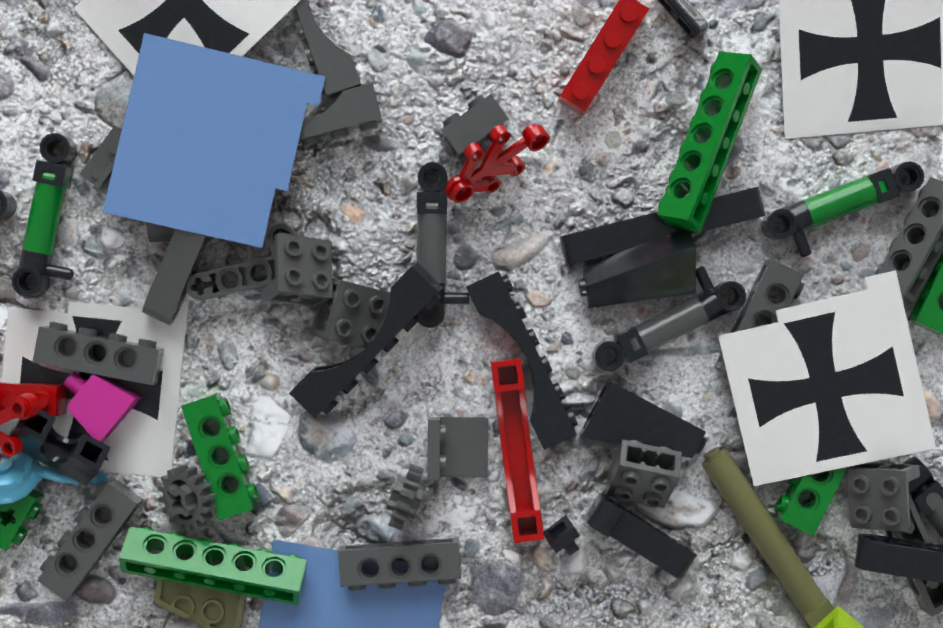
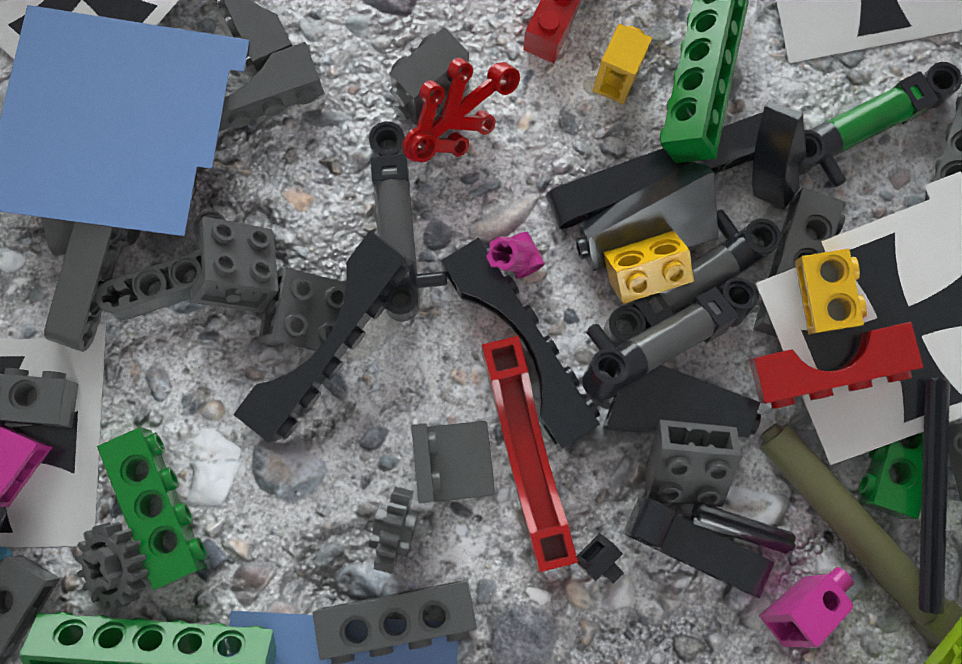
camera: 10 degrees left, 10 degrees down
(527, 288) = (515, 255): none -> dark pink piece
(633, 313) = (649, 267): none -> yellow brick
(638, 132) = (621, 63): none -> yellow brick
(639, 374) = (702, 321): none -> black piece
(677, 526) = (743, 528): none -> black axle
(718, 592) = (810, 609): none -> dark pink torso
(753, 234) = (778, 154): none -> black slope
(765, 355) = (817, 292): none -> yellow brick
(806, 410) = (881, 353): none -> red arch
(826, 520) = (934, 496): none -> black axle

